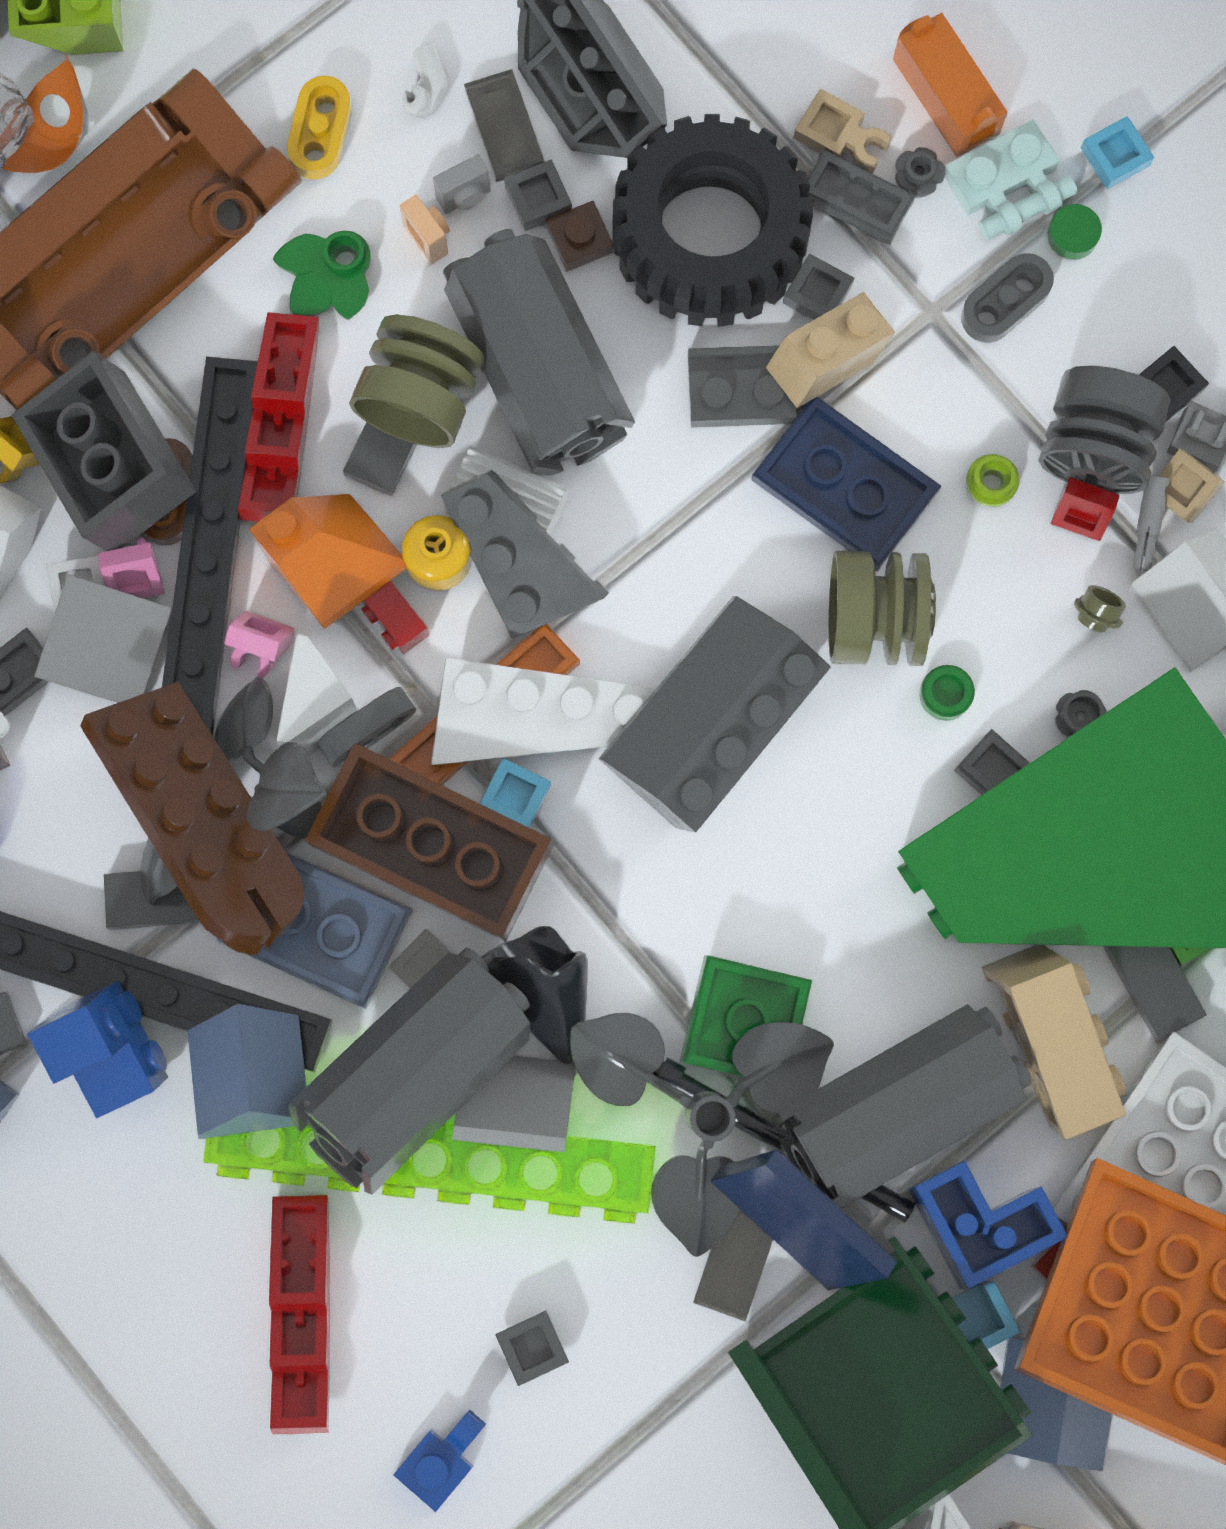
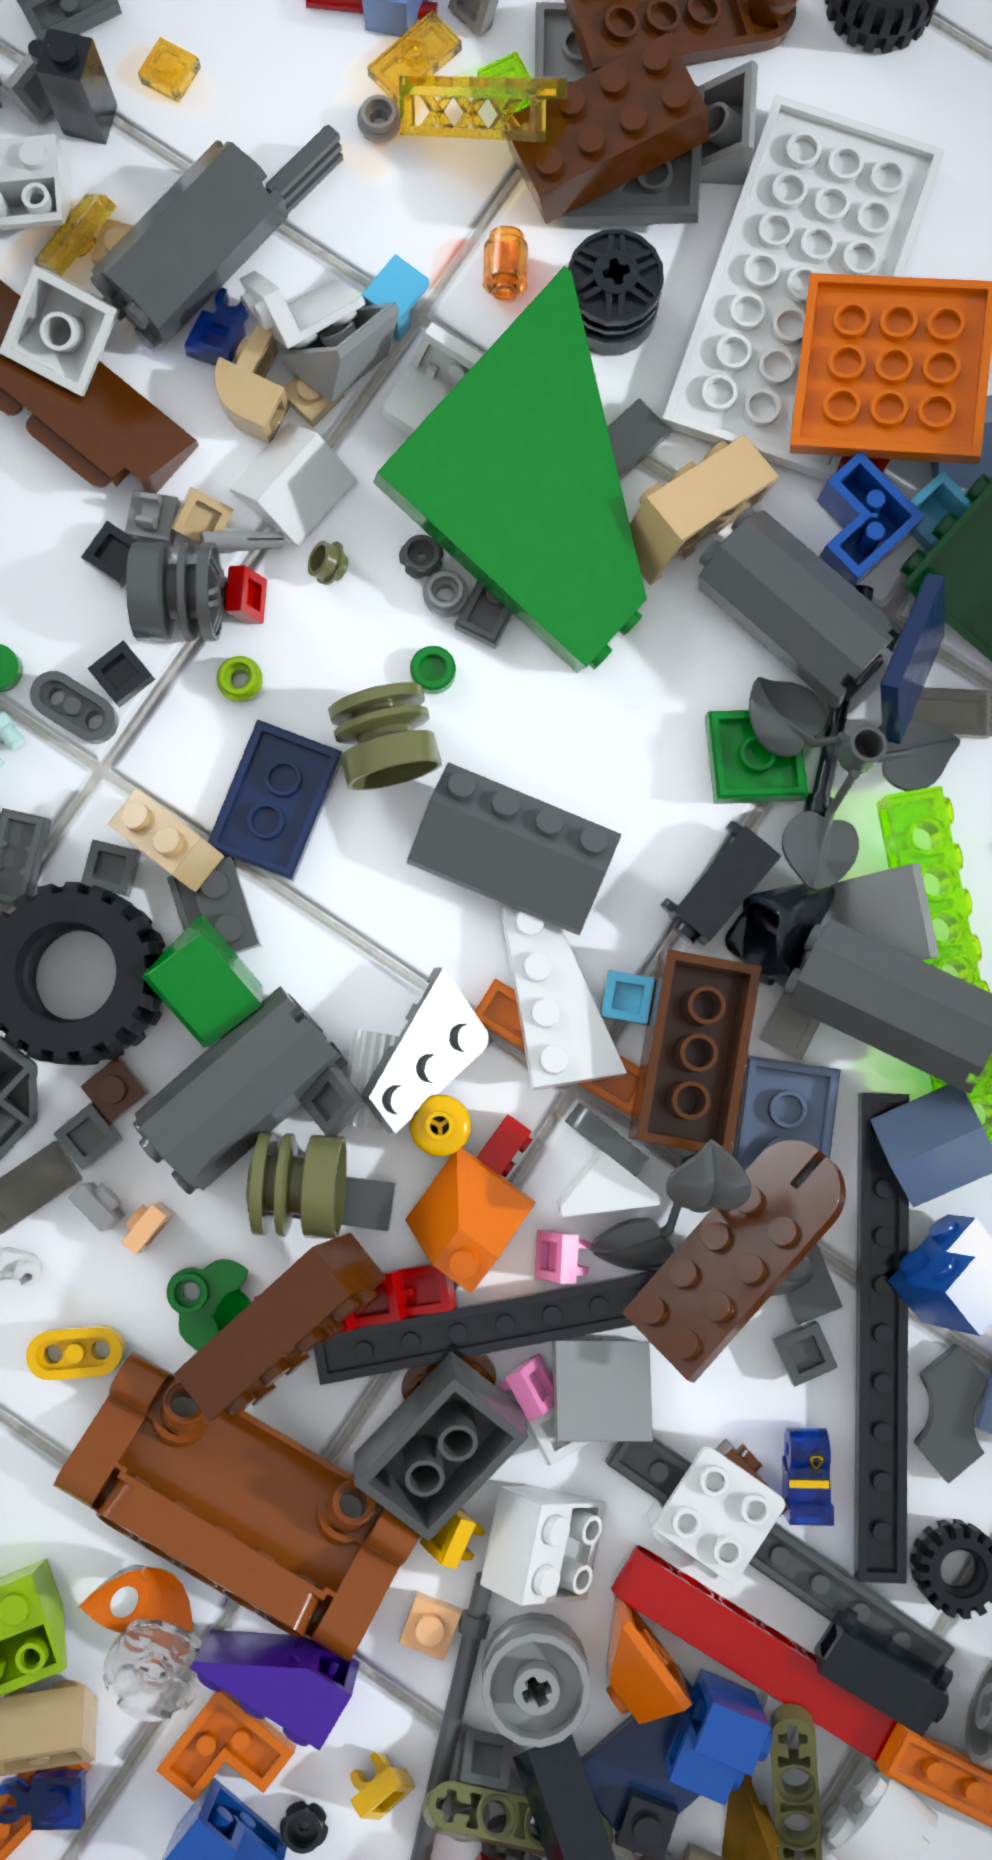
camera: 105 degrees left, 5 degrees up
(71, 871) = (804, 1353): none -> dark grey plate
(277, 325) = (281, 1327): none -> reddish brown brick
(495, 439) = (332, 1101): none -> dark grey plate
(607, 934) = (722, 886): none -> black brick
(663, 347) = (204, 983): none -> green slope
(1031, 356) = (121, 673): none -> black plate
(1042, 718) = (445, 580): none -> light grey plate

